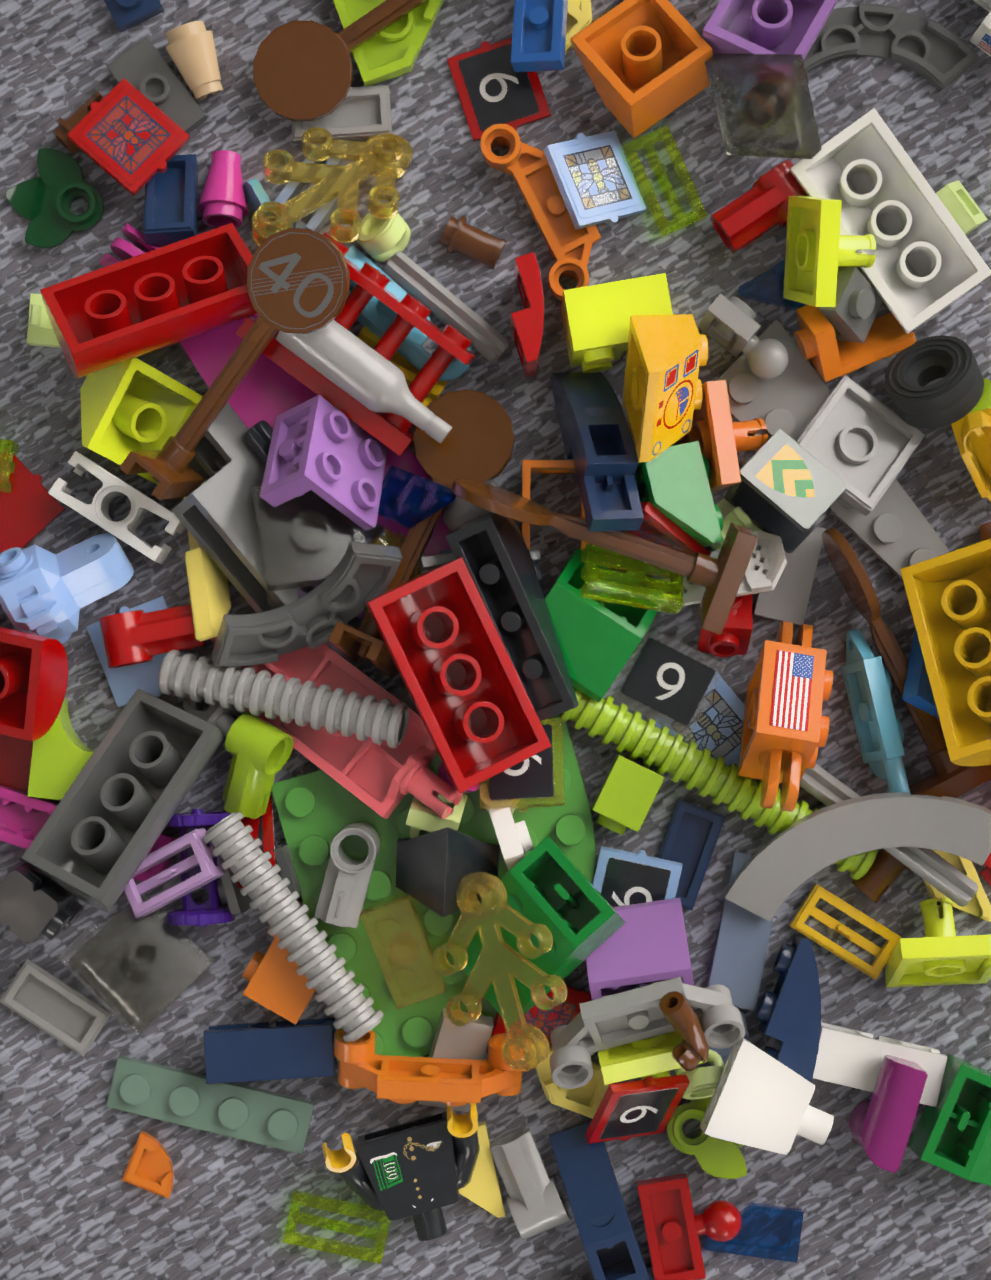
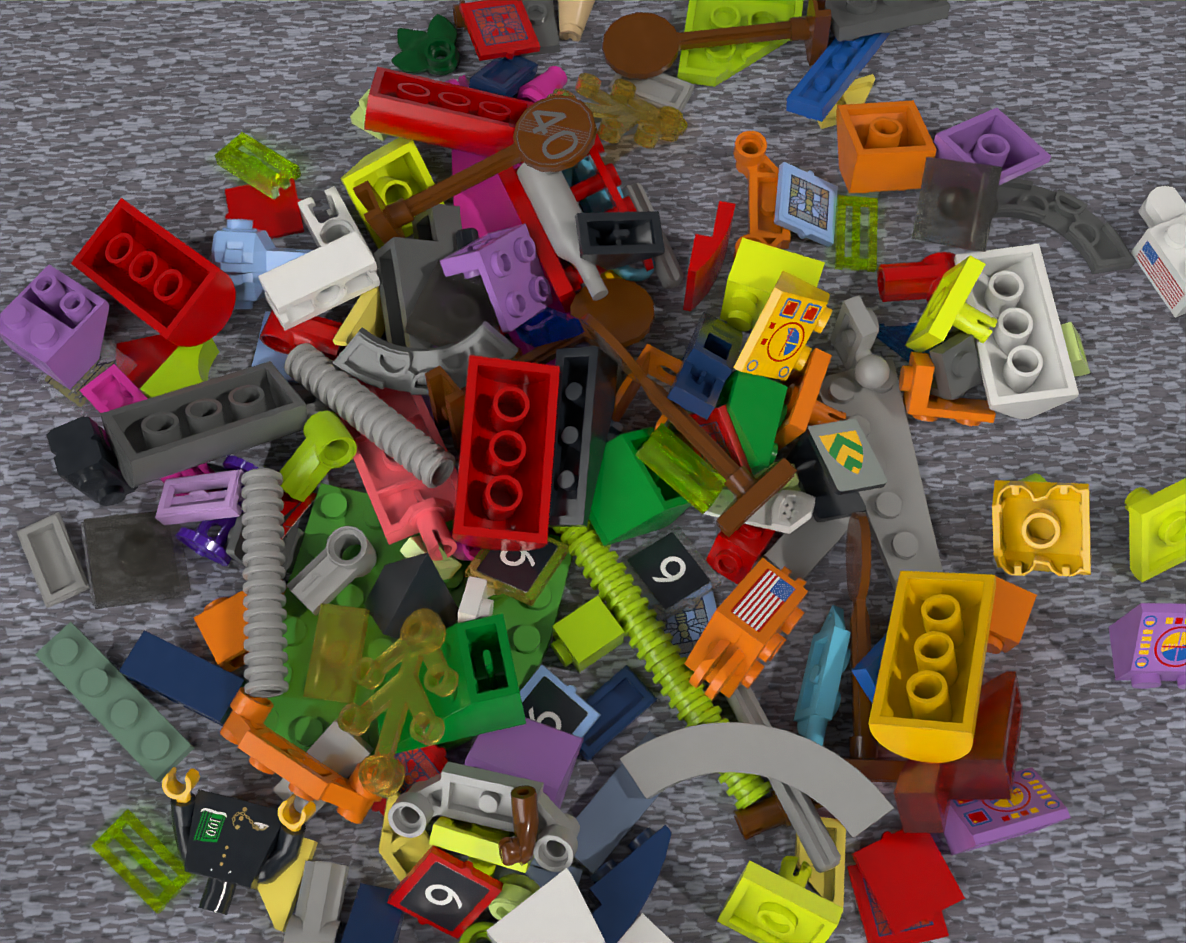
camera: 25 degrees right, 20 degrees down
(142, 581) = (320, 280): none -> white piece
(150, 1167) = (34, 723): orange tile -> none
(383, 236) = (635, 164): yellowish green tile -> none
(435, 364) = (619, 237): none -> black slope
(472, 242) = (694, 202): reddish brown pin -> none
(493, 91) = (769, 117): black piece -> none
(808, 908) = (689, 859): yellow tile -> none
(859, 443) = (916, 471): light grey tile -> none
(943, 401) = (995, 451): black tyre -> none

